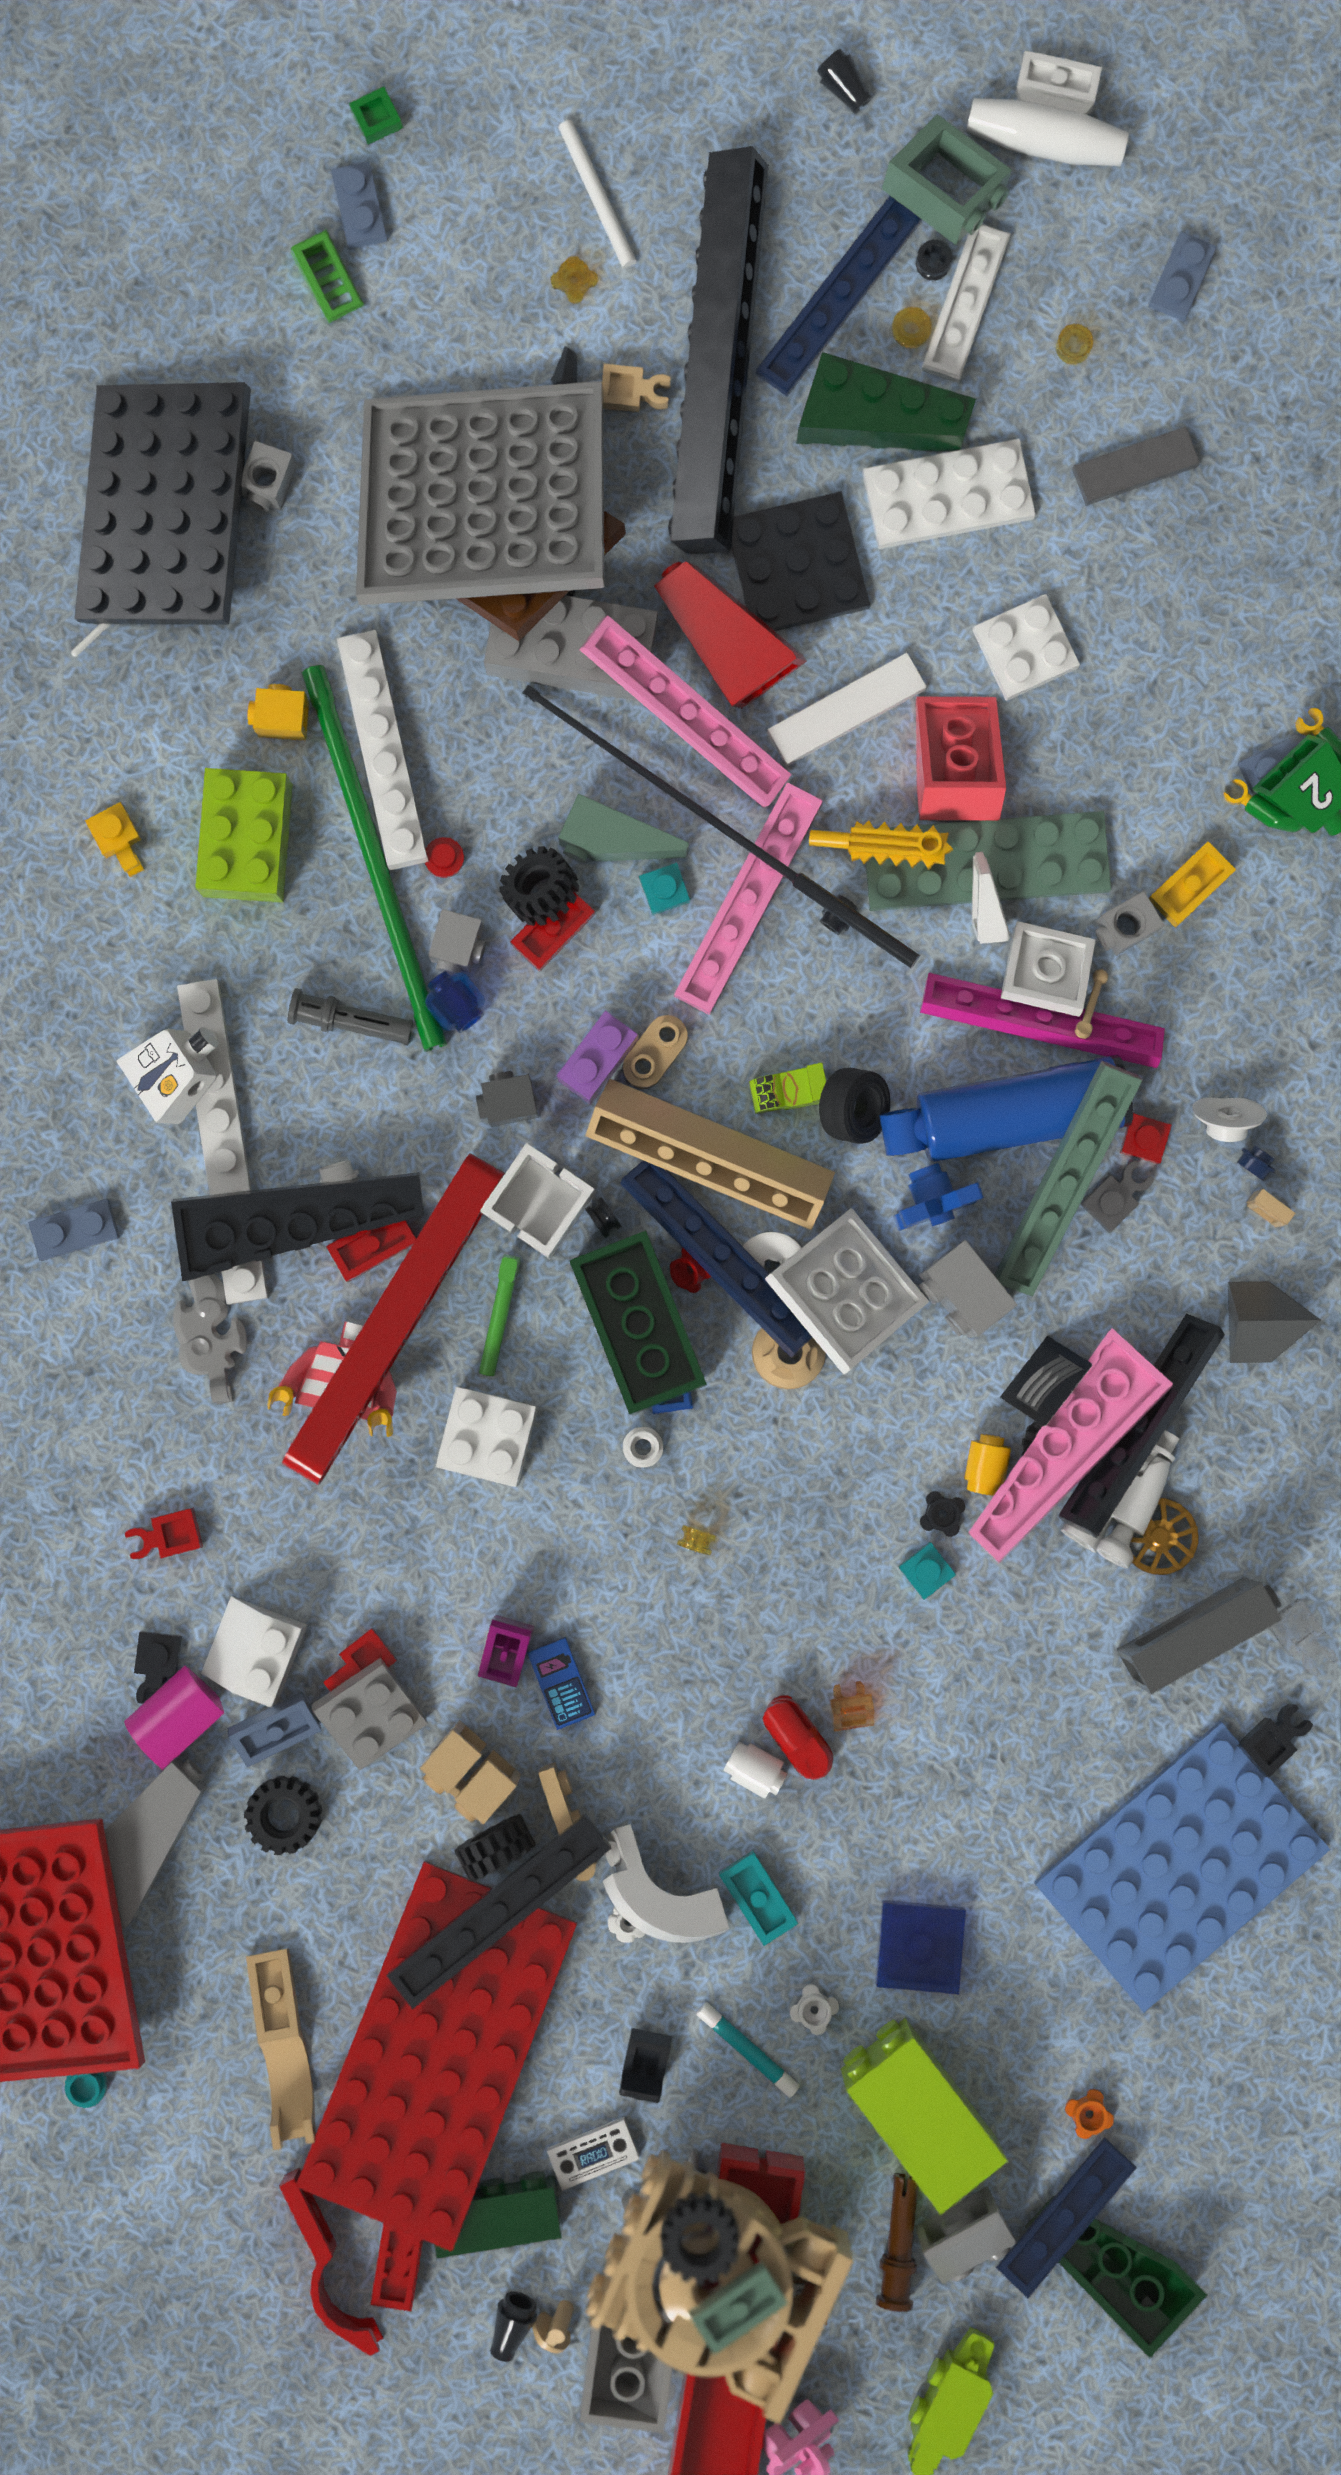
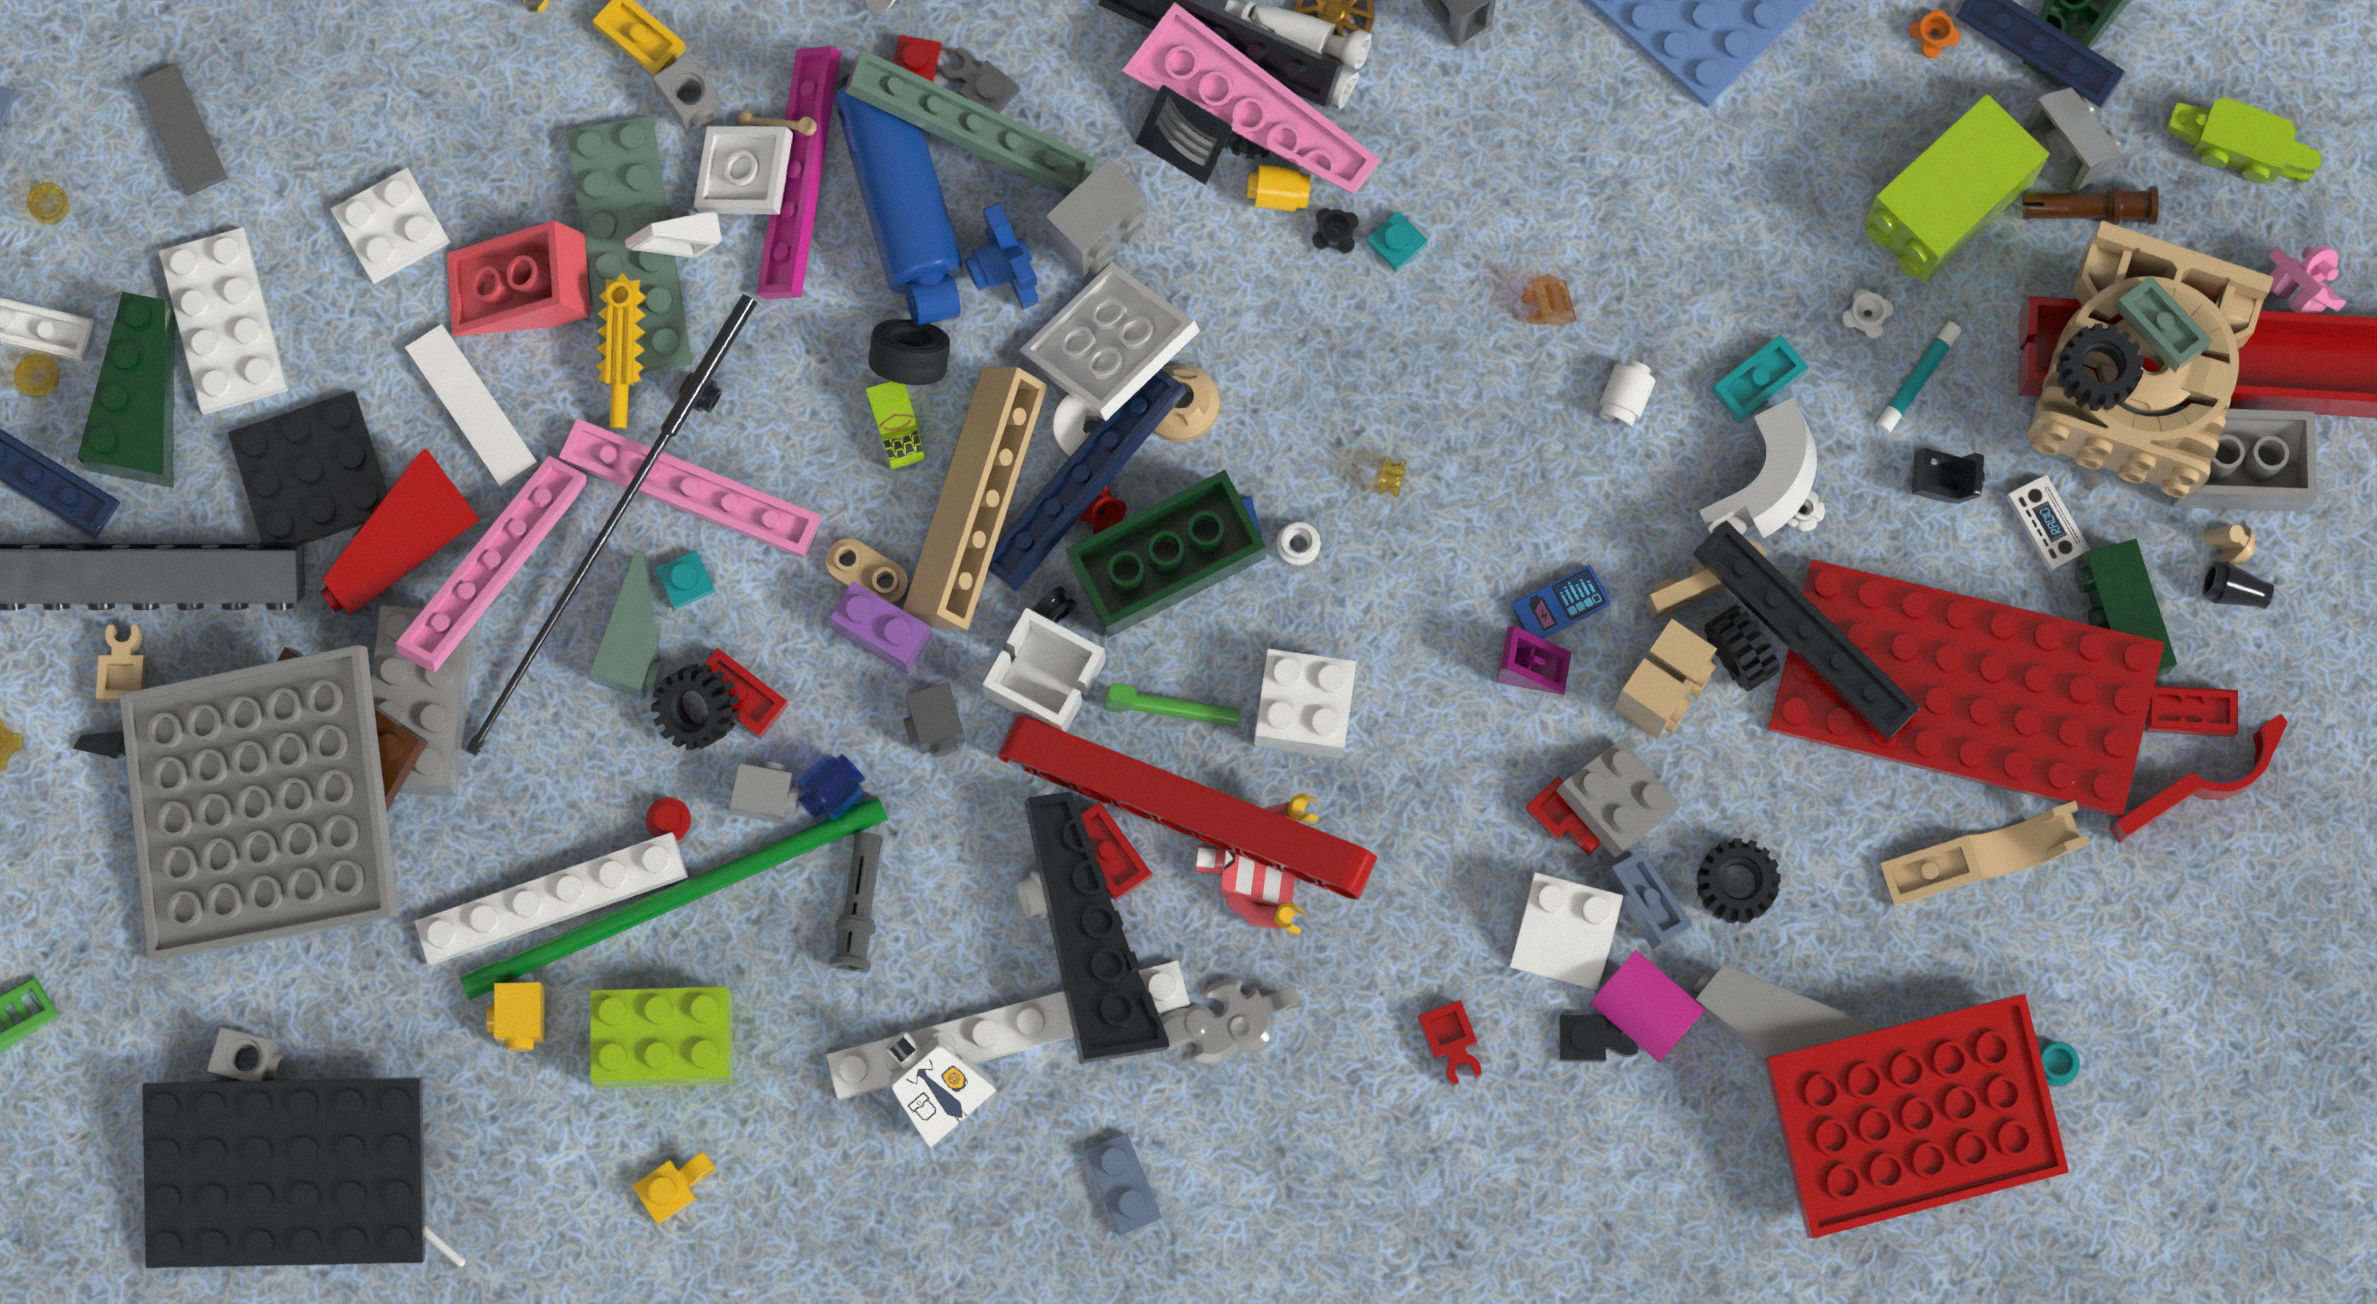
camera: 95 degrees left, 10 degrees down
(798, 1737) = (1587, 353): red arm -> none
(920, 1947) = (1788, 212): clear blue plate -> none

